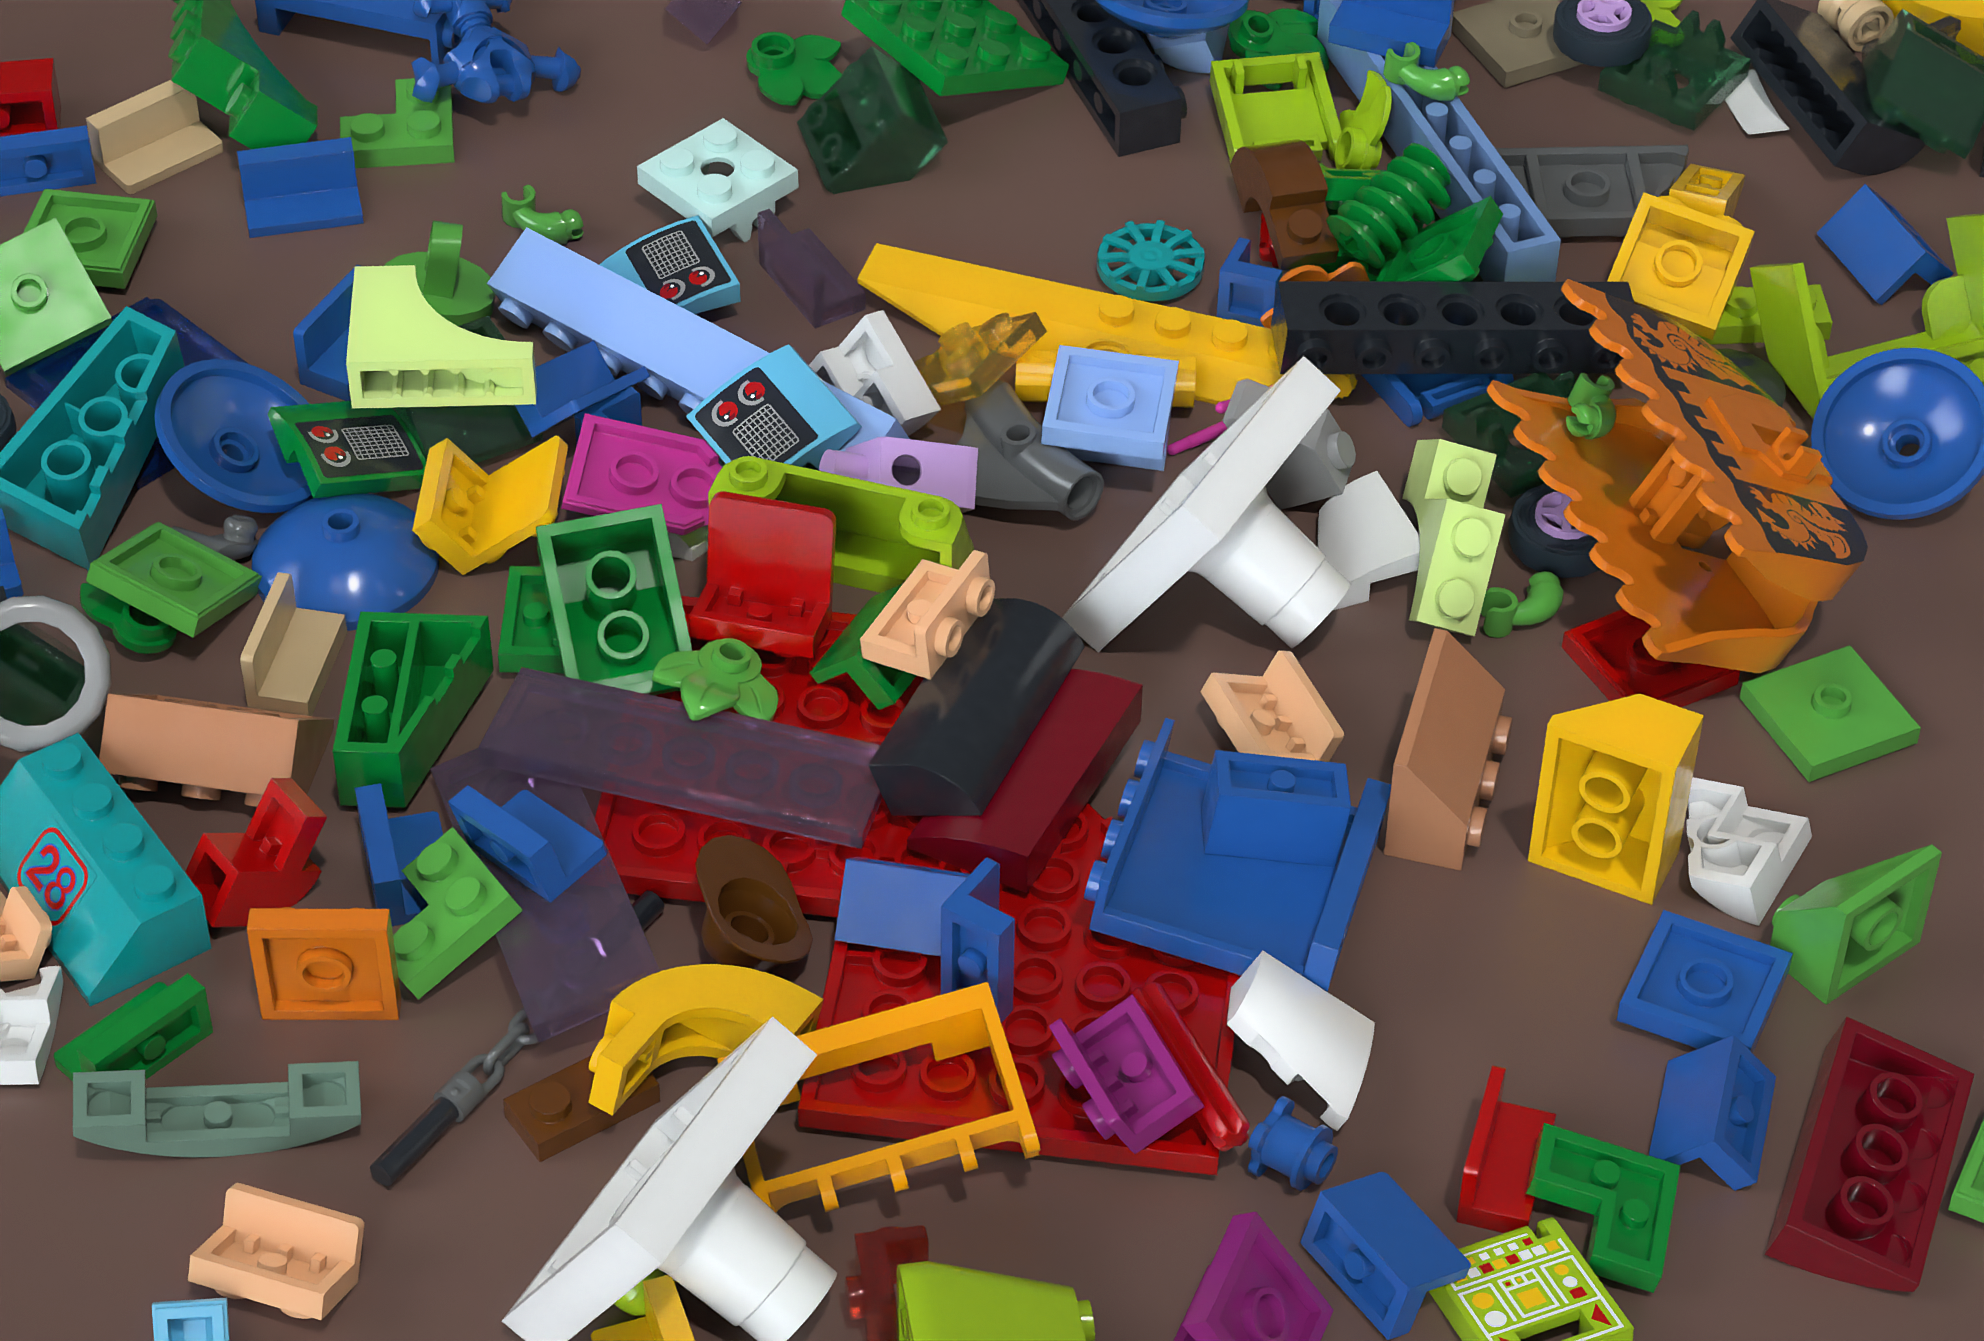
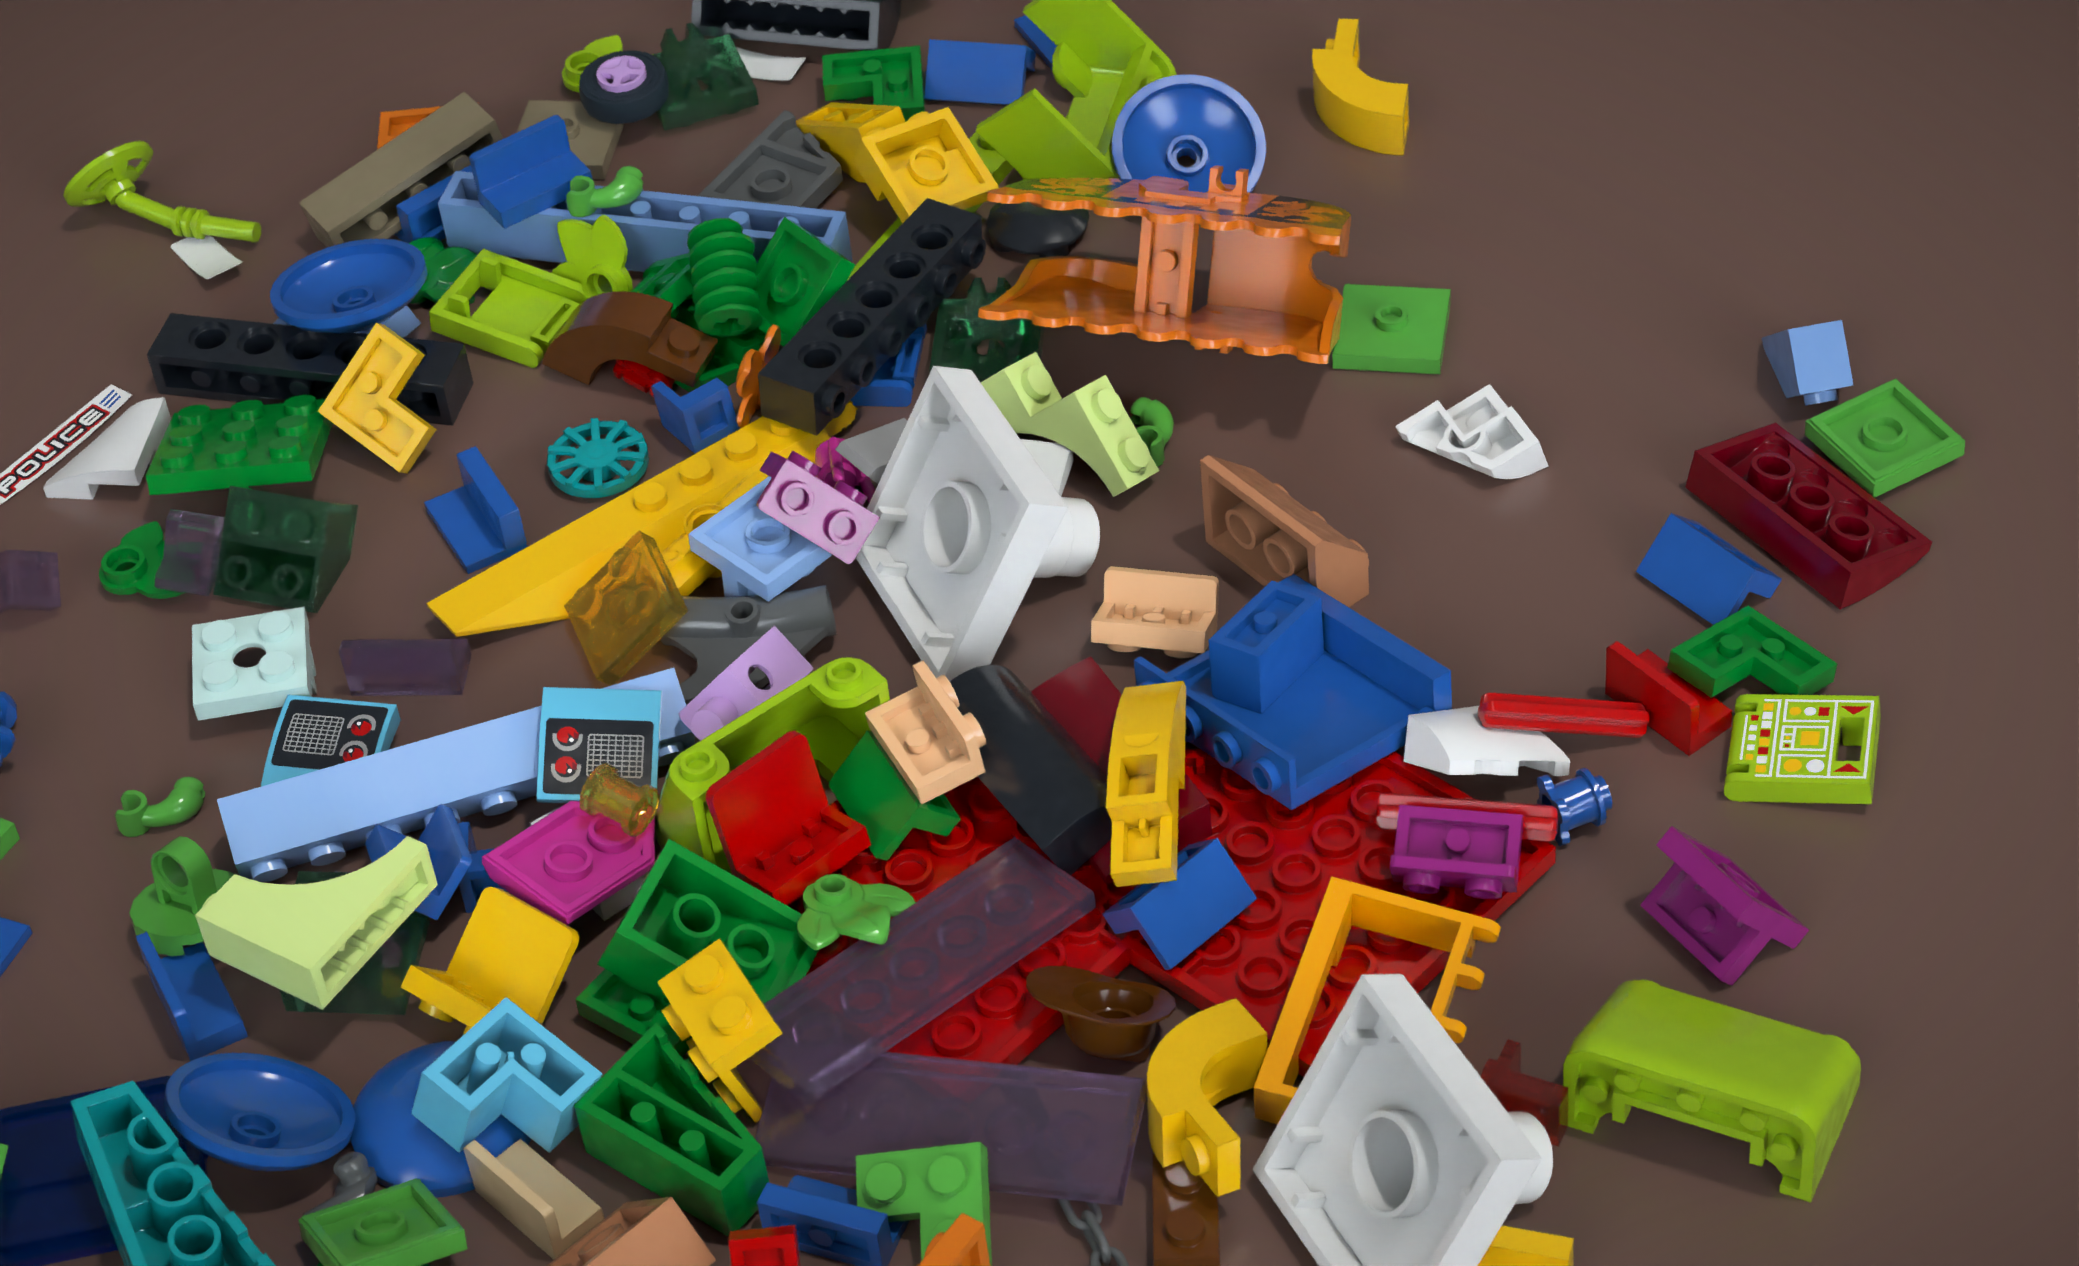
camera: 50 degrees left, 0 degrees up
(348, 448) = (339, 1045): slope -> none
(352, 541) = (504, 1069): none -> medium azure brick
(506, 650) = (723, 1017): none -> yellow bracket
(528, 840) = (922, 1107): blue panel -> none
(708, 456) = (619, 799): none -> clear yellow bush
(798, 86) = (190, 552): none -> panel
(879, 372) = (585, 659): white slope -> none
(978, 938) = (1286, 867): blue panel -> none
(1006, 769) = (1145, 783): none -> yellow slope
(1017, 223) = (478, 517): none -> blue panel
(1059, 79) = (366, 402): none -> yellow plate
(1150, 400) = (814, 509): none -> bracket
(1381, 1250) = (1709, 798): blue panel -> none
(1392, 1082) = (1563, 715): none -> red axle
(1545, 537) = (1095, 355): black wheel -> none
(1592, 407) = (1026, 273): bright green arm -> none
(1615, 793) = (1431, 450): yellow slope -> none
(1620, 666) = (1257, 394): red tile -> none
(1703, 984) = (1592, 515): blue plate -> none
(1802, 190) = (888, 75): none -> green plate
(1856, 922) = (1609, 407): bright green slope -> none

